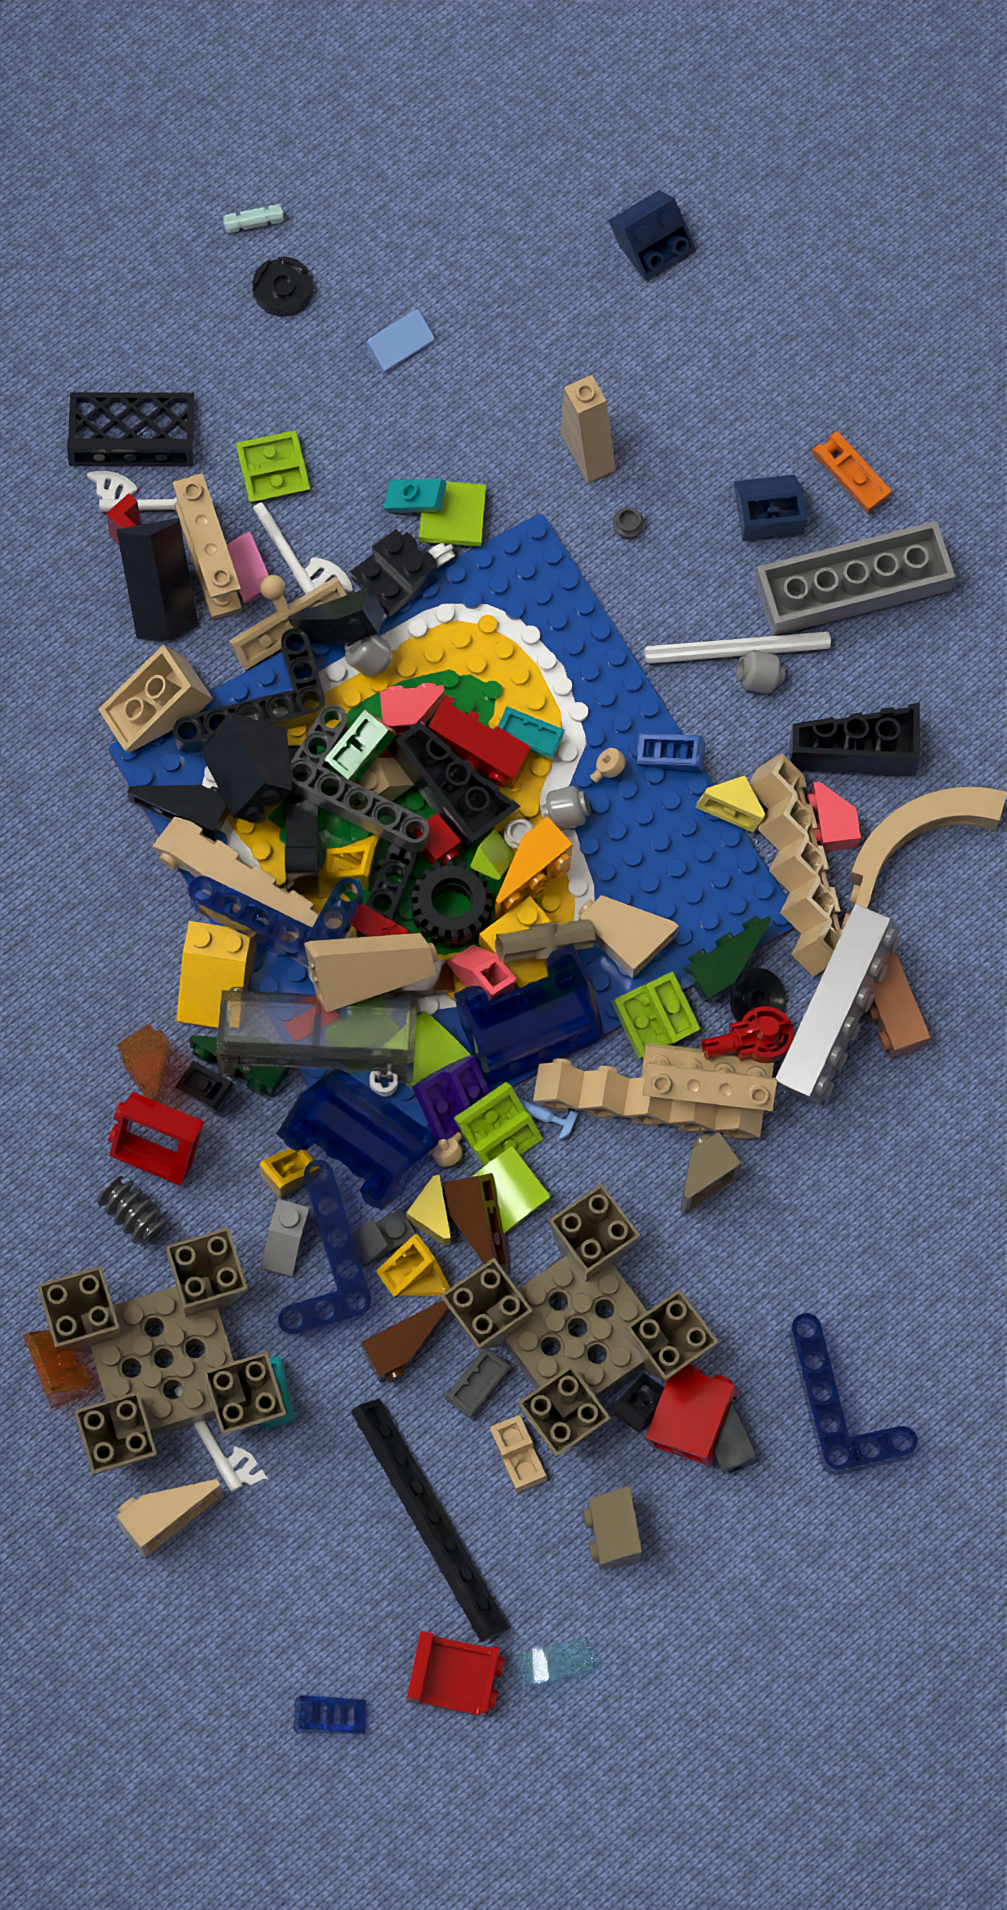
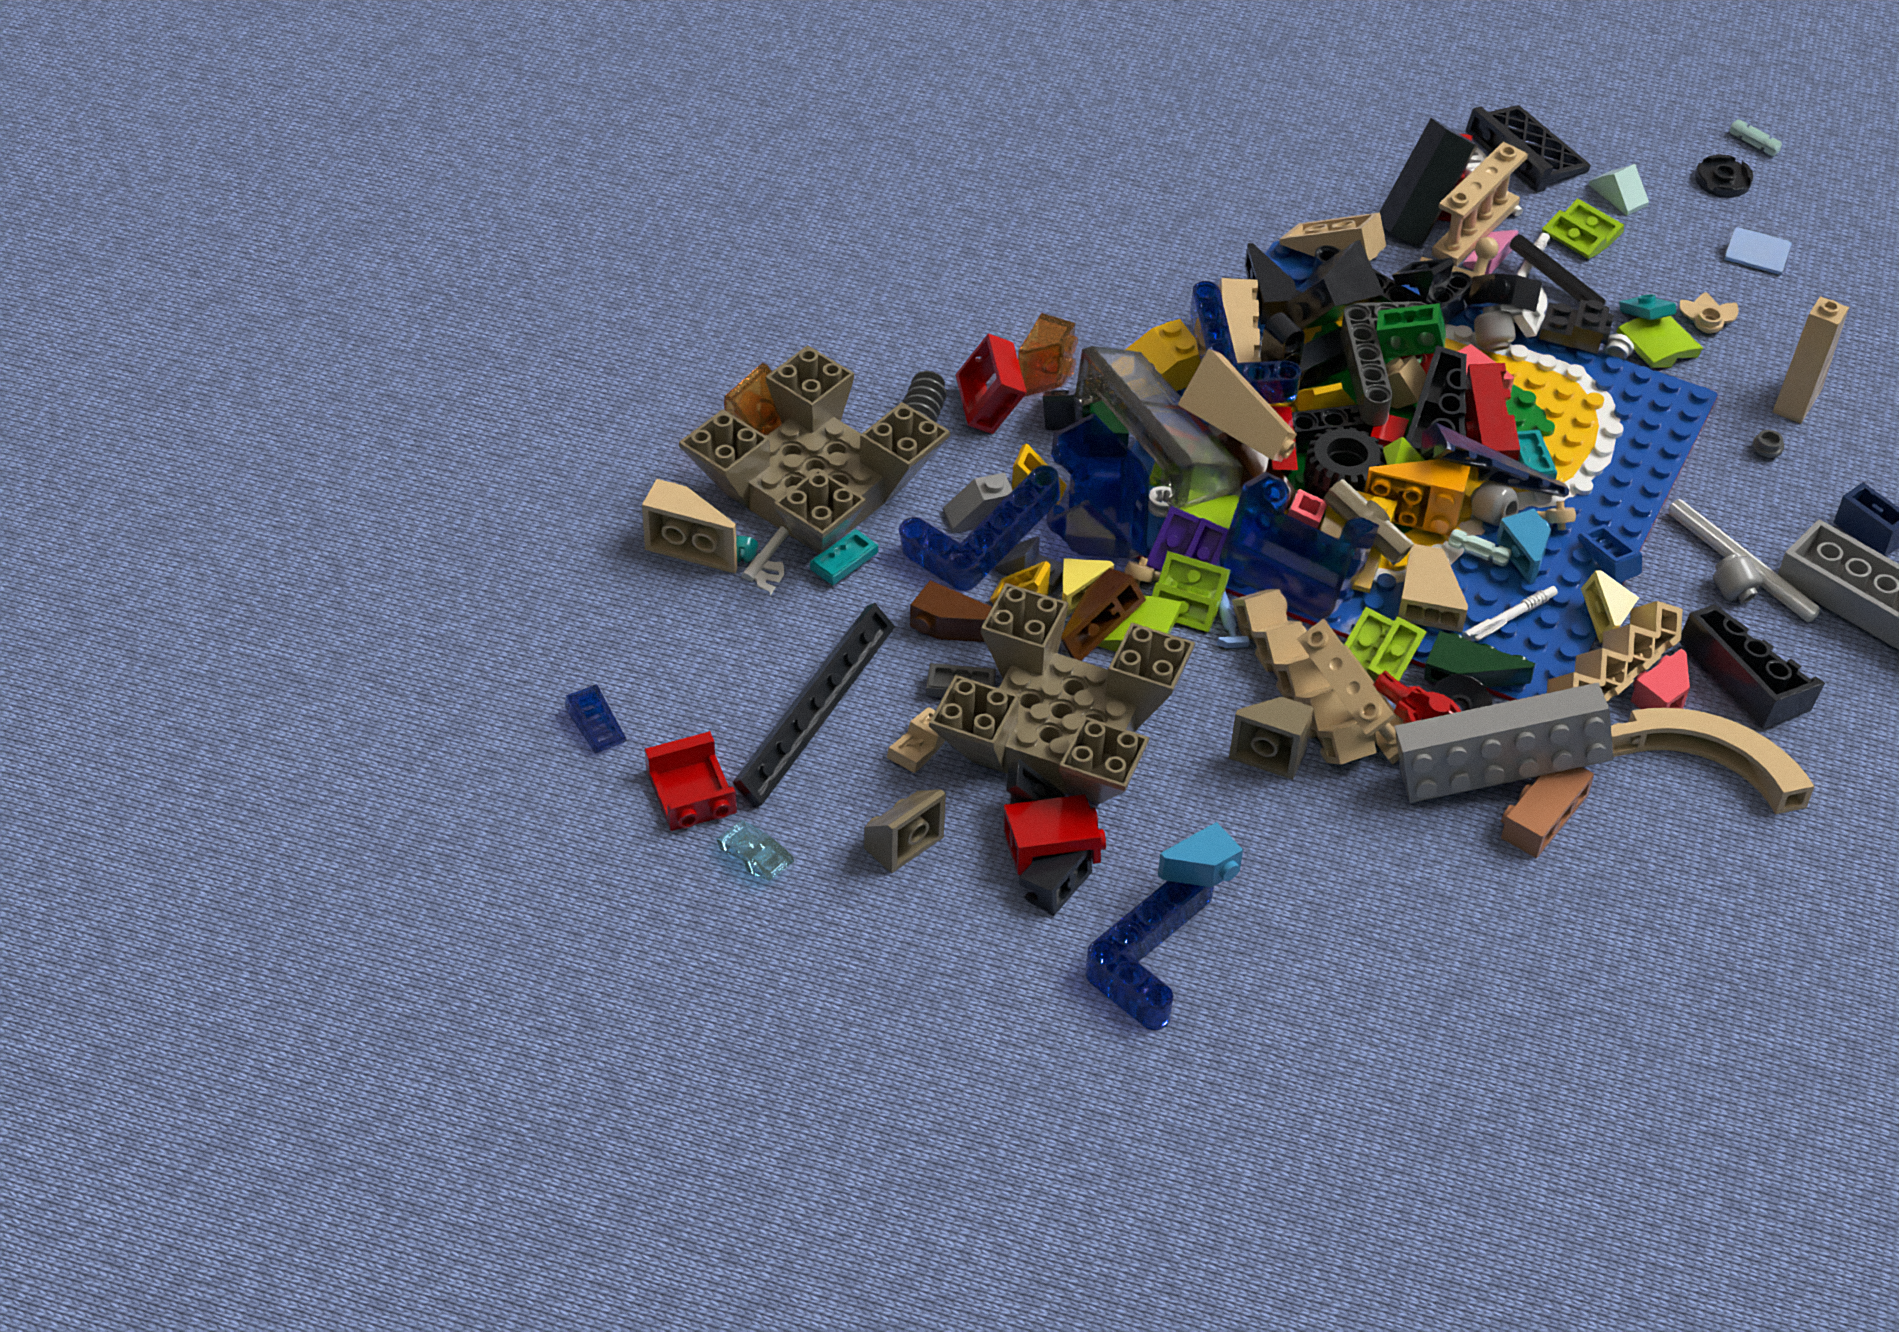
camera: 60 degrees right, 25 degrees down
(208, 1471) = (746, 548): none -> teal hinge
(241, 392) = (1622, 189): none -> light aqua slope
(284, 675) = (1428, 276): none -> black slope
(319, 537) = (1553, 270): none -> black axle
(440, 441) = (1707, 314): none -> tan plate
(533, 799) = (1450, 446): none -> dark blue wedge
(601, 855) = (1479, 547): none -> light aqua axle
(626, 815) = (1527, 539): none -> dark azure slope
(691, 928) = (1492, 625): none -> white piece
(806, 1318) = (1202, 858): none -> dark azure slope

